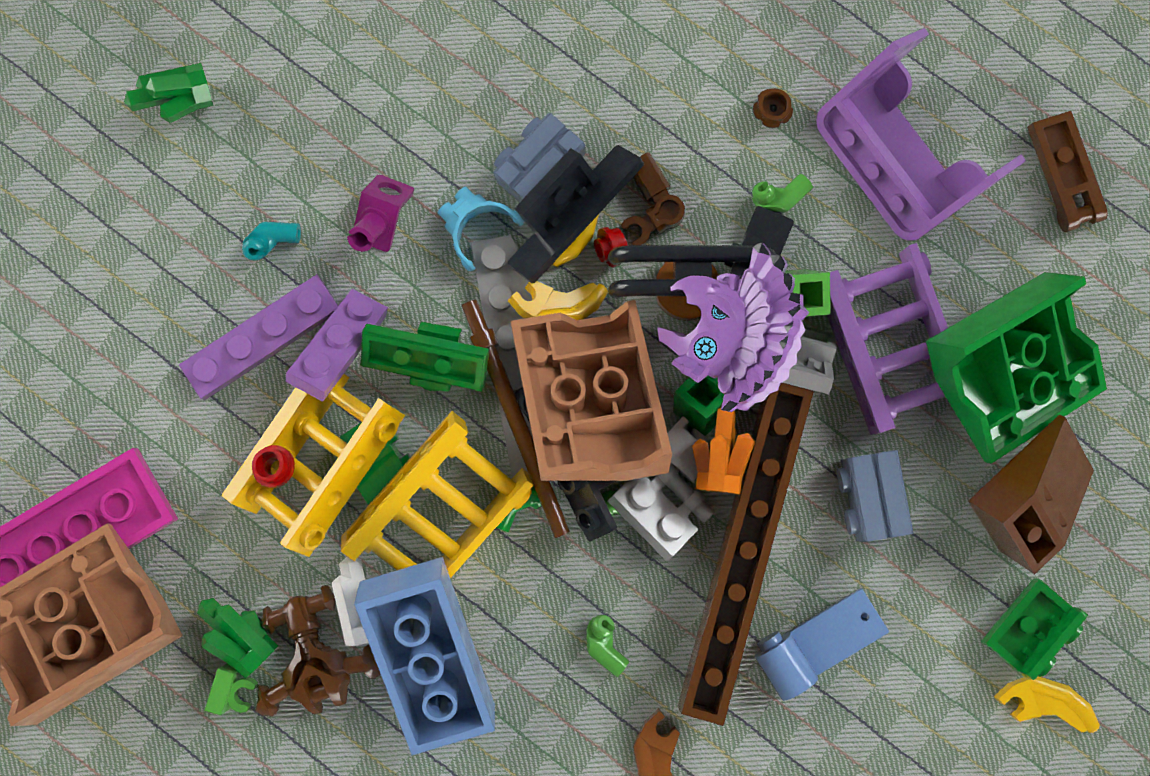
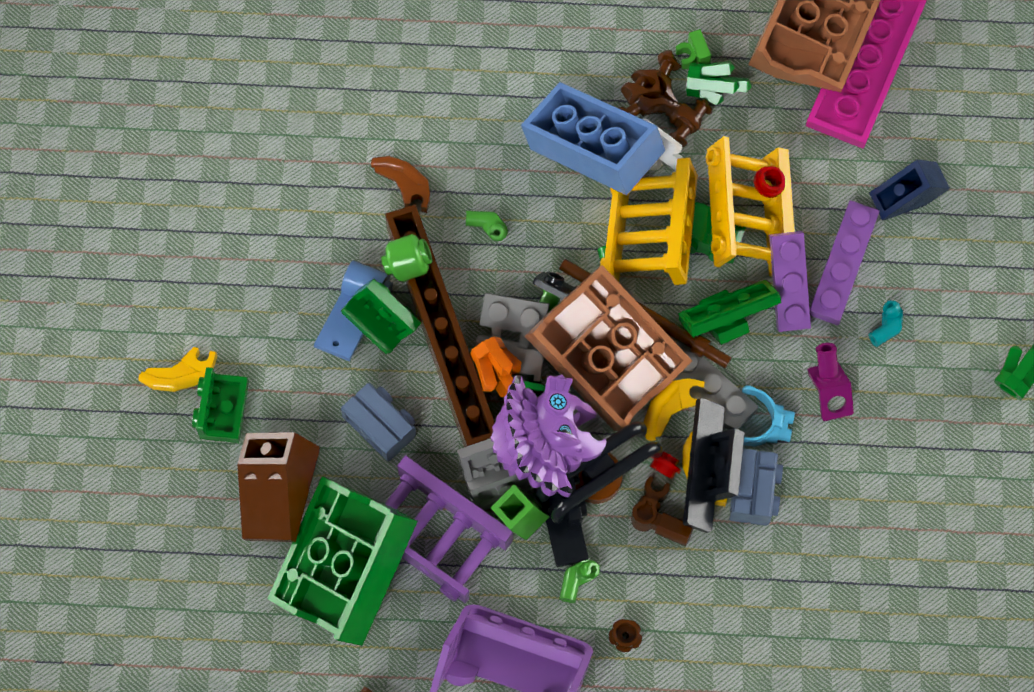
camera: 140 degrees right, 15 degrees down
(129, 363) = (909, 189): none -> dark blue slope
(741, 648) = (407, 258): none -> bright green head
(804, 610) = (380, 316): none -> green bracket

